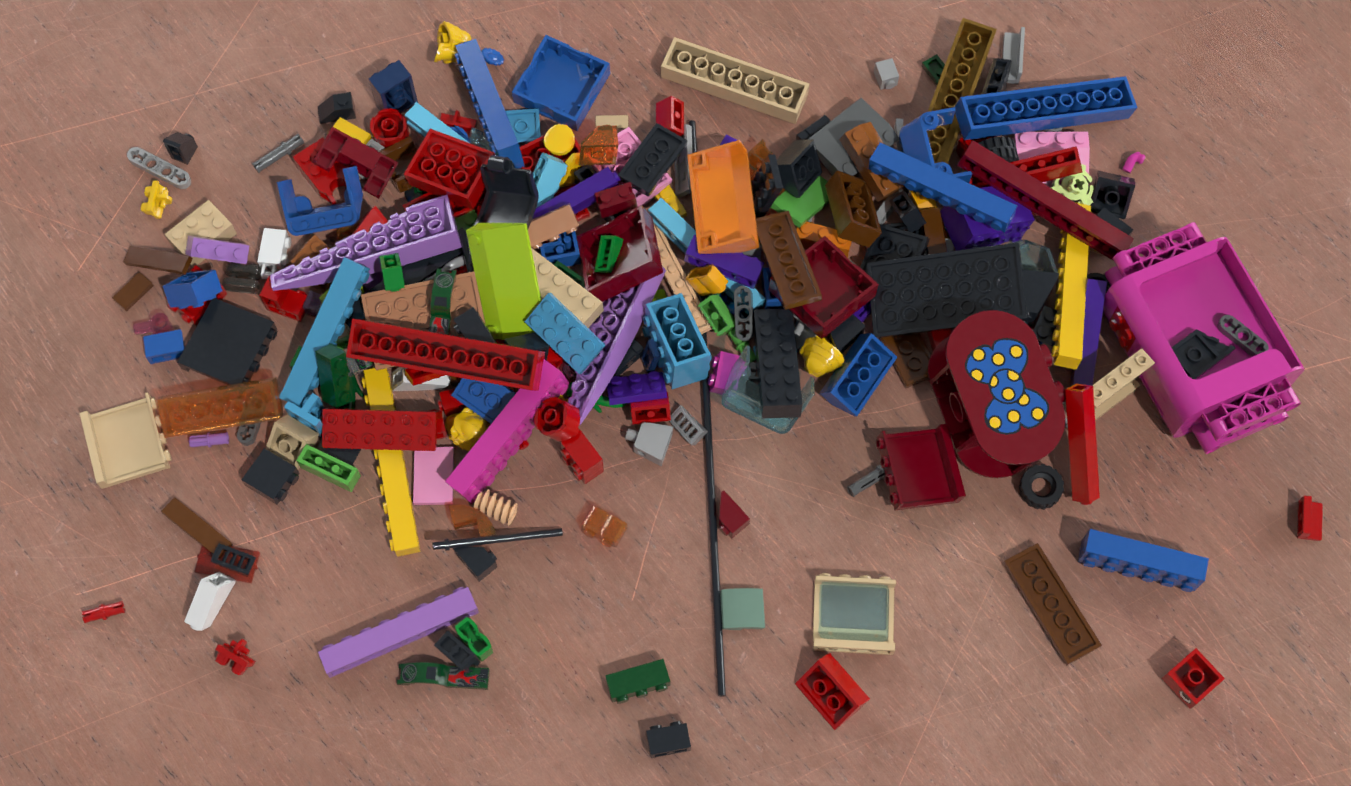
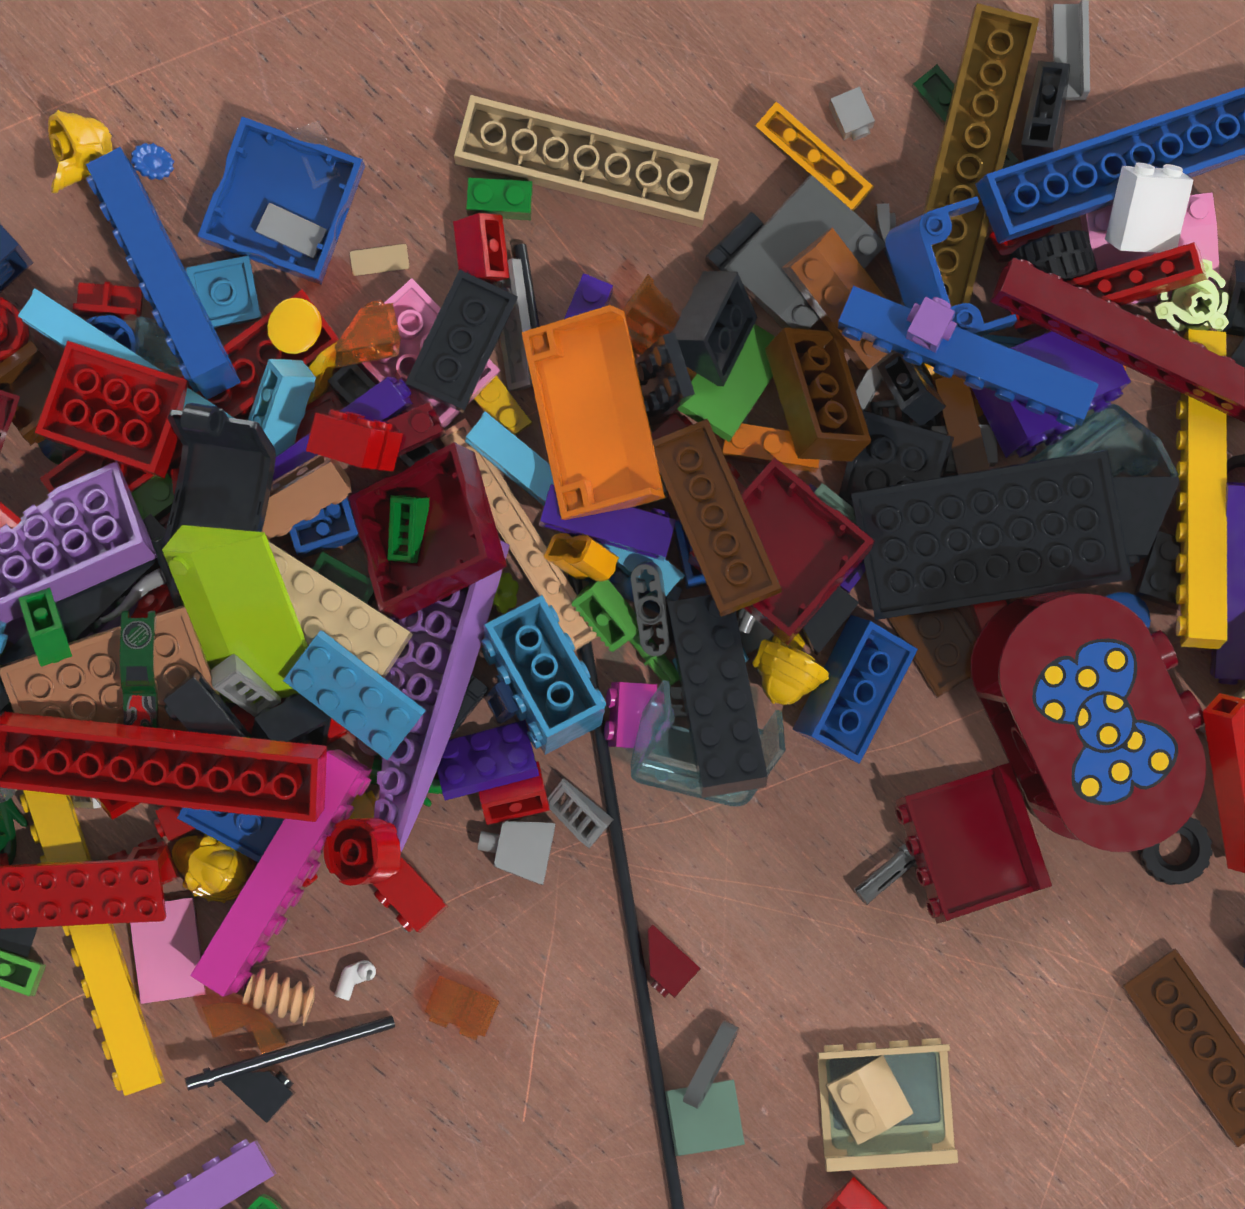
camera: 10 degrees left, 15 degrees up
(488, 318) = (234, 670): none -> light grey slope
(541, 502) = (352, 975): none -> white arm
(563, 99) = (291, 230): none -> light grey tile
(584, 192) = (354, 440): none -> red piece
(687, 92) = (500, 197): none -> green brick
(750, 575) = (711, 1064): none -> dark grey beam
(843, 608) = (869, 1100): none -> tan slope
(862, 88) = (814, 156): none -> light orange brick
(922, 162) = (931, 323): none -> medium lavender brick
(1051, 127) = (1149, 208): none -> white brick

